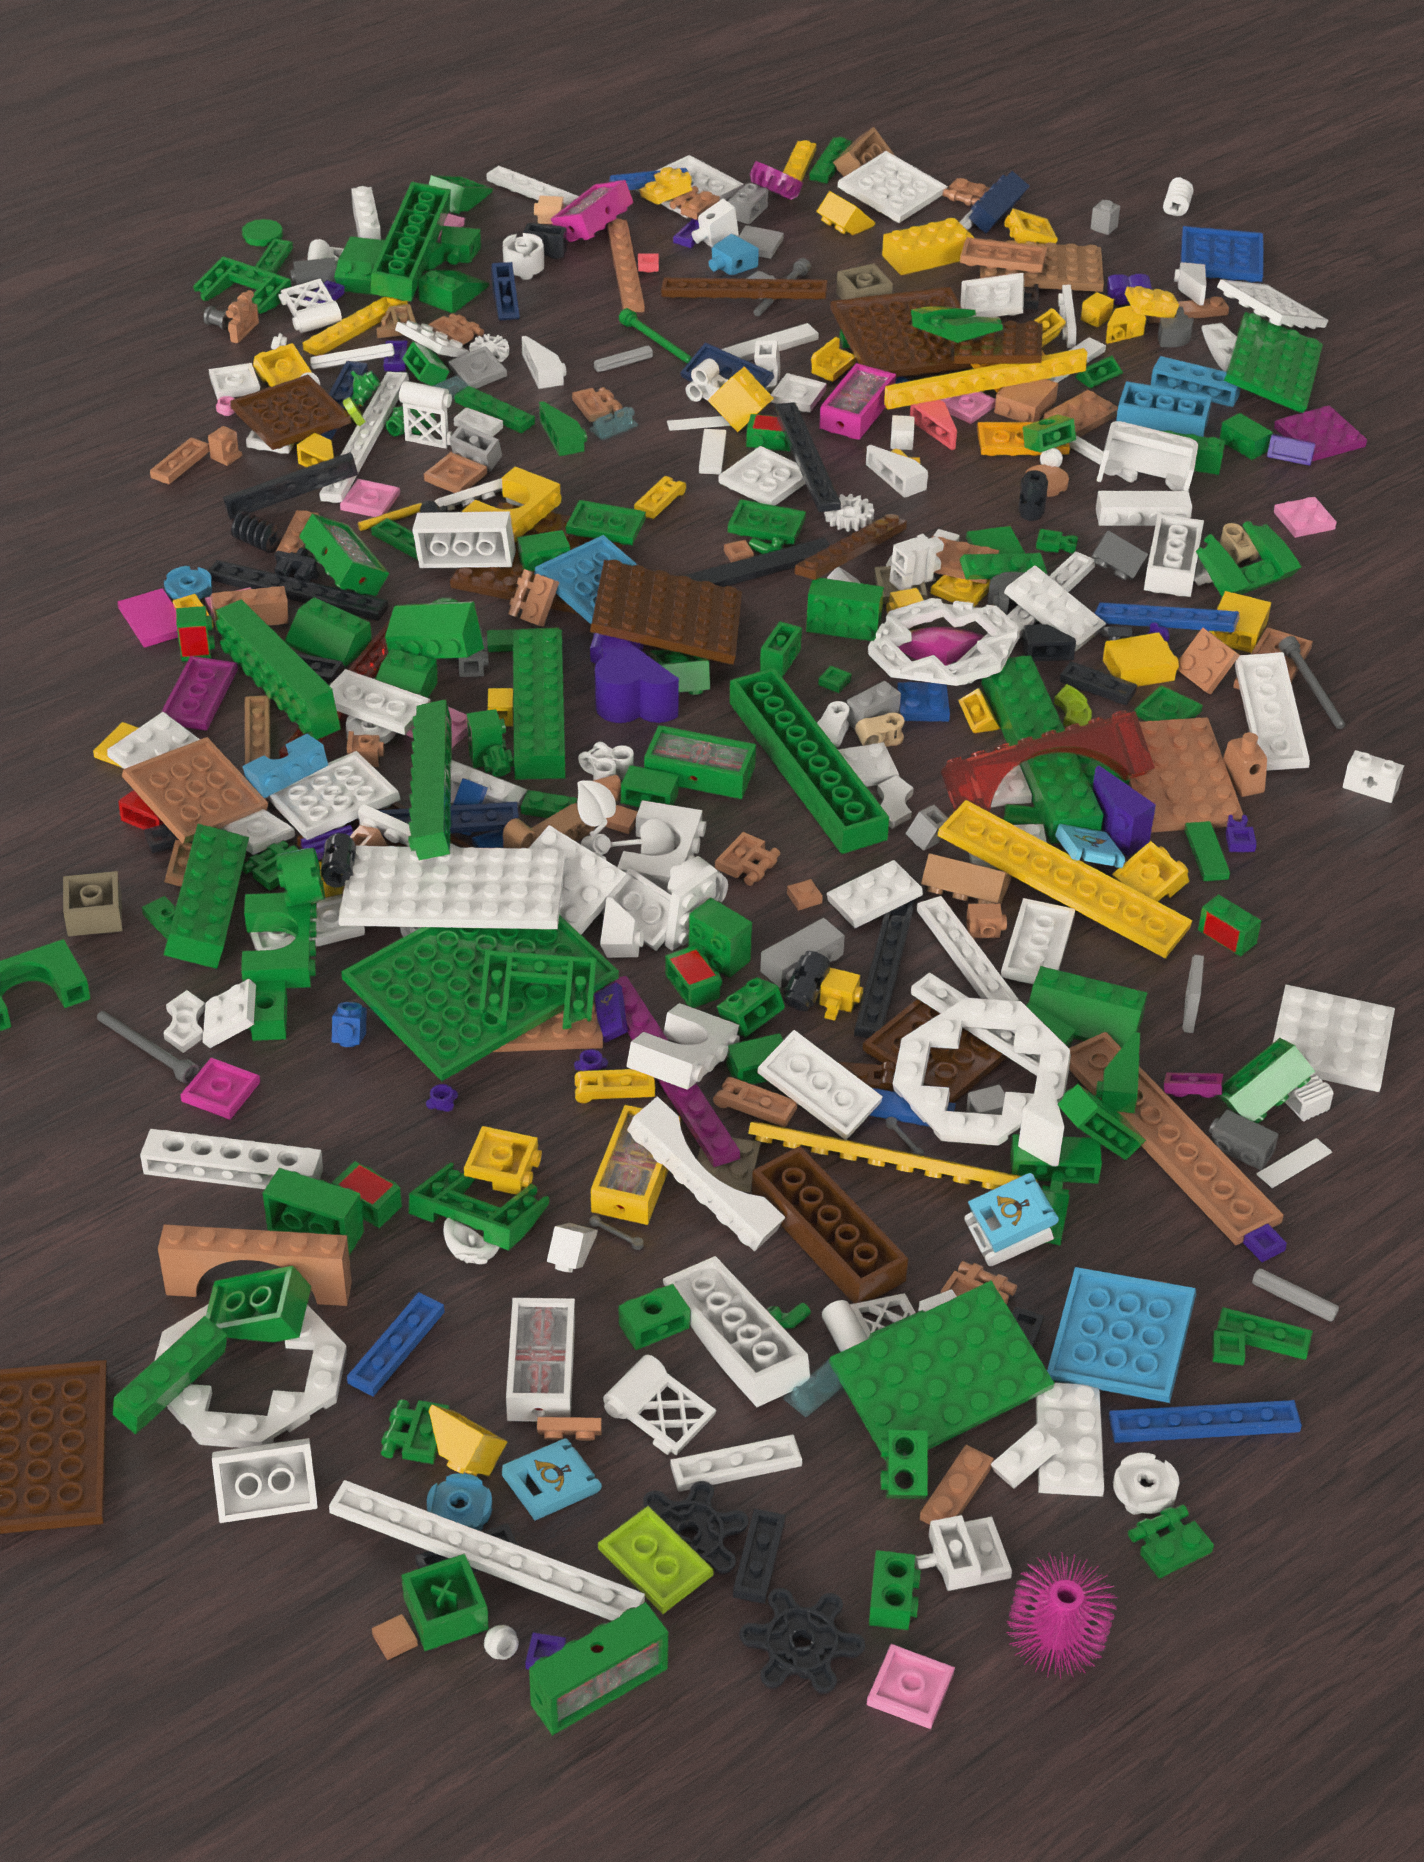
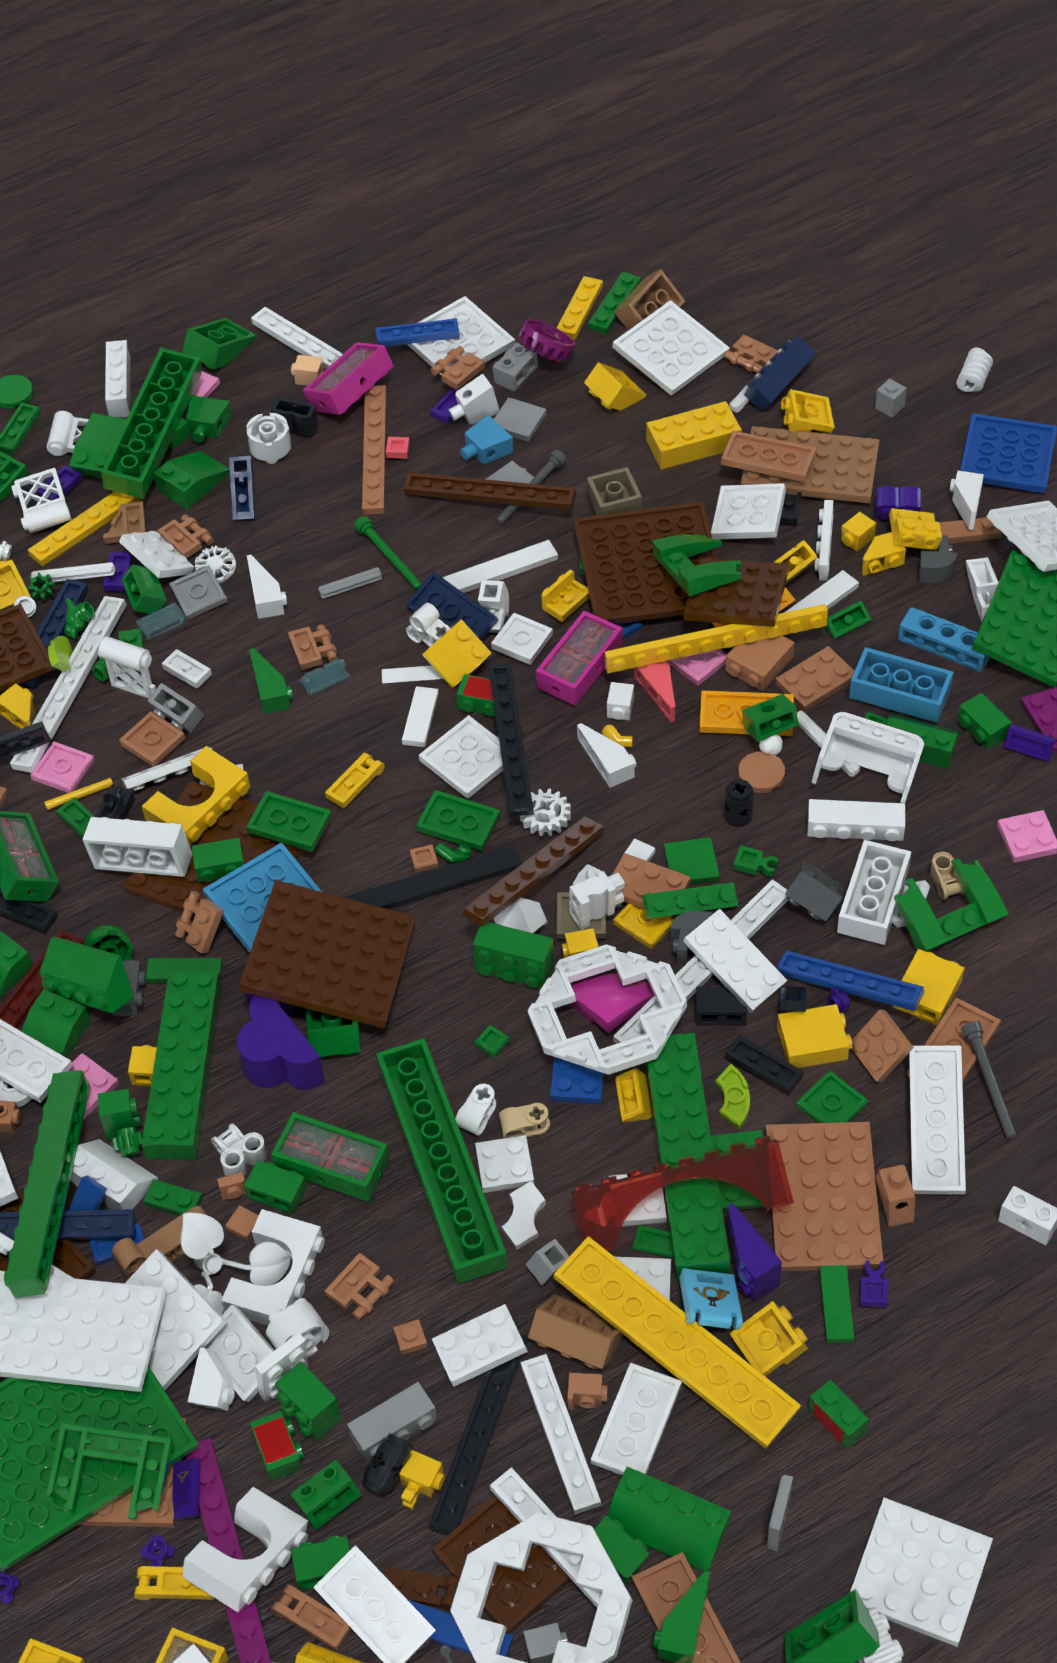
camera: 10 degrees right, 10 degrees up
(312, 270) = (50, 455): dark grey brick -> none
(323, 366) = (39, 589): none -> green gear
(512, 417) = (207, 648): green plate -> none
(668, 185) = (431, 348): yellow plate -> none
(781, 648) = (439, 1005): green brick -> none
(873, 702) = (522, 1087): light grey brick -> none
(1182, 1084) = (761, 1629): magenta plate -> none

